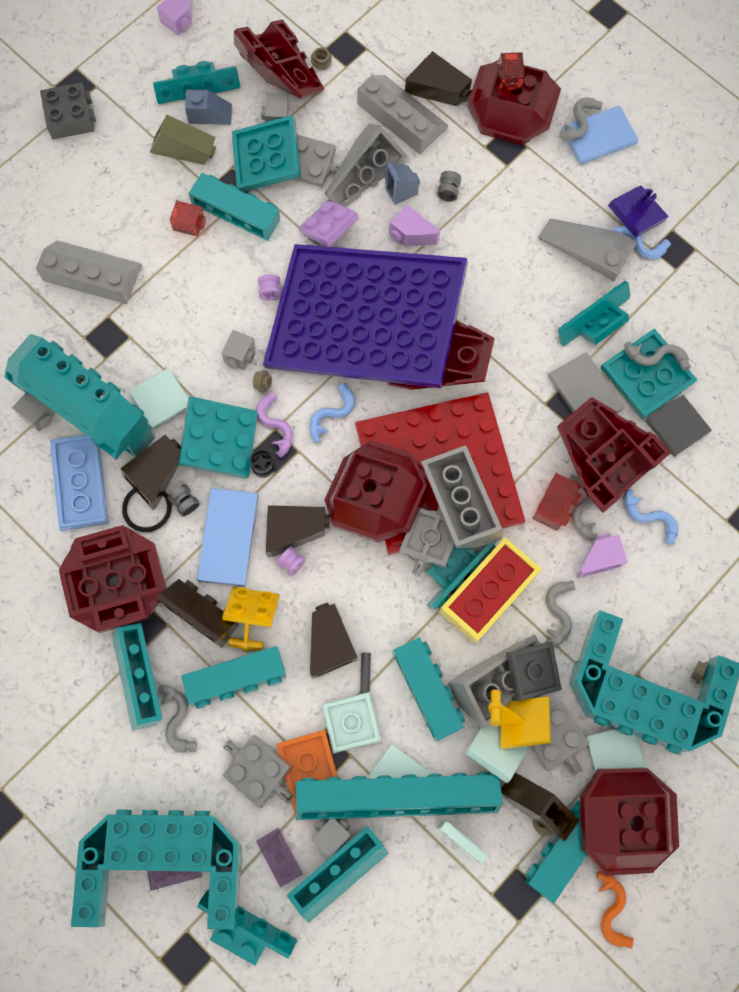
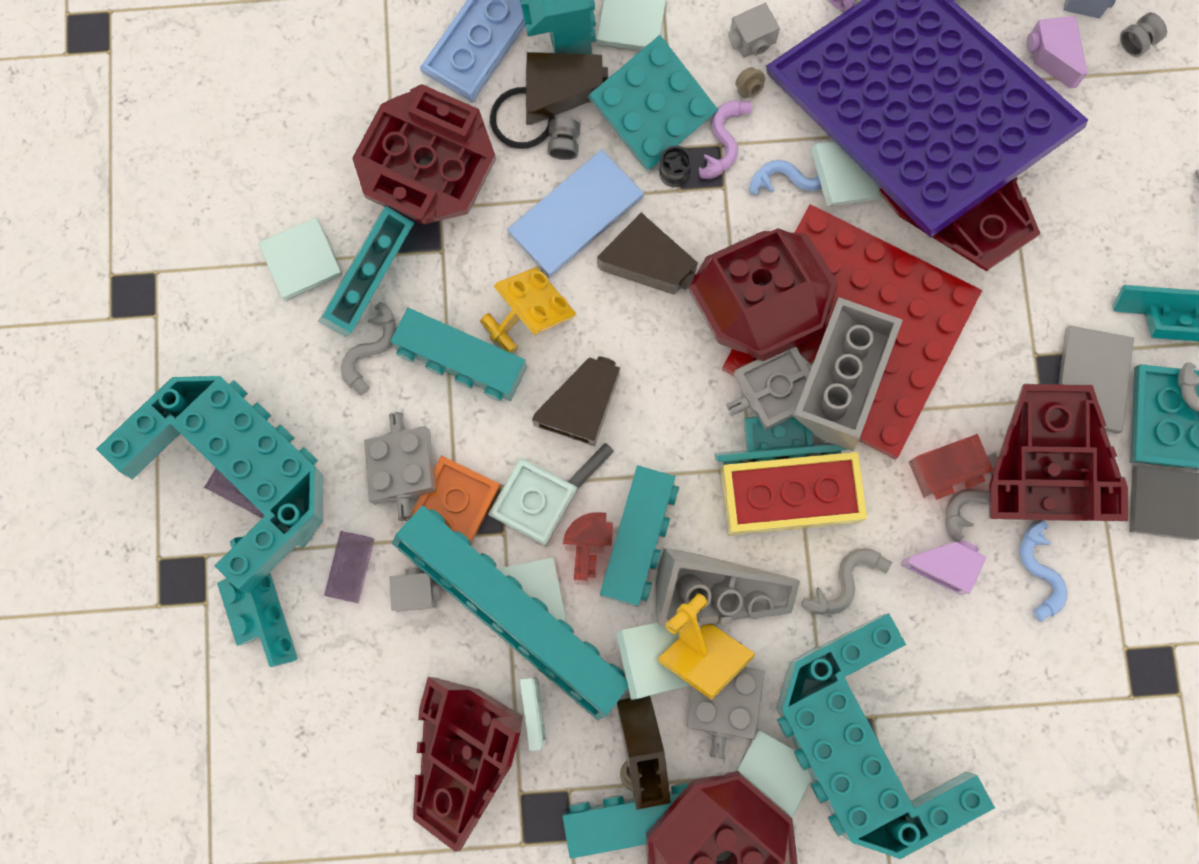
camera: 50 degrees right, 5 degrees up
(86, 703) = (300, 259): none -> light aqua tile
(198, 611) = (478, 259): dark brown slope -> none
(291, 561) = (615, 289): lavender wheel -> none
(337, 874) = (386, 632): teal brick -> none
(359, 392) = (841, 177): none -> light aqua tile
(401, 715) = (587, 535): none -> clear red brick
(446, 904) = (464, 757): none -> dark red wedge
(533, 671) = (763, 615): dark grey tile -> none
(699, 671) = (942, 774): dark tan plate -> none

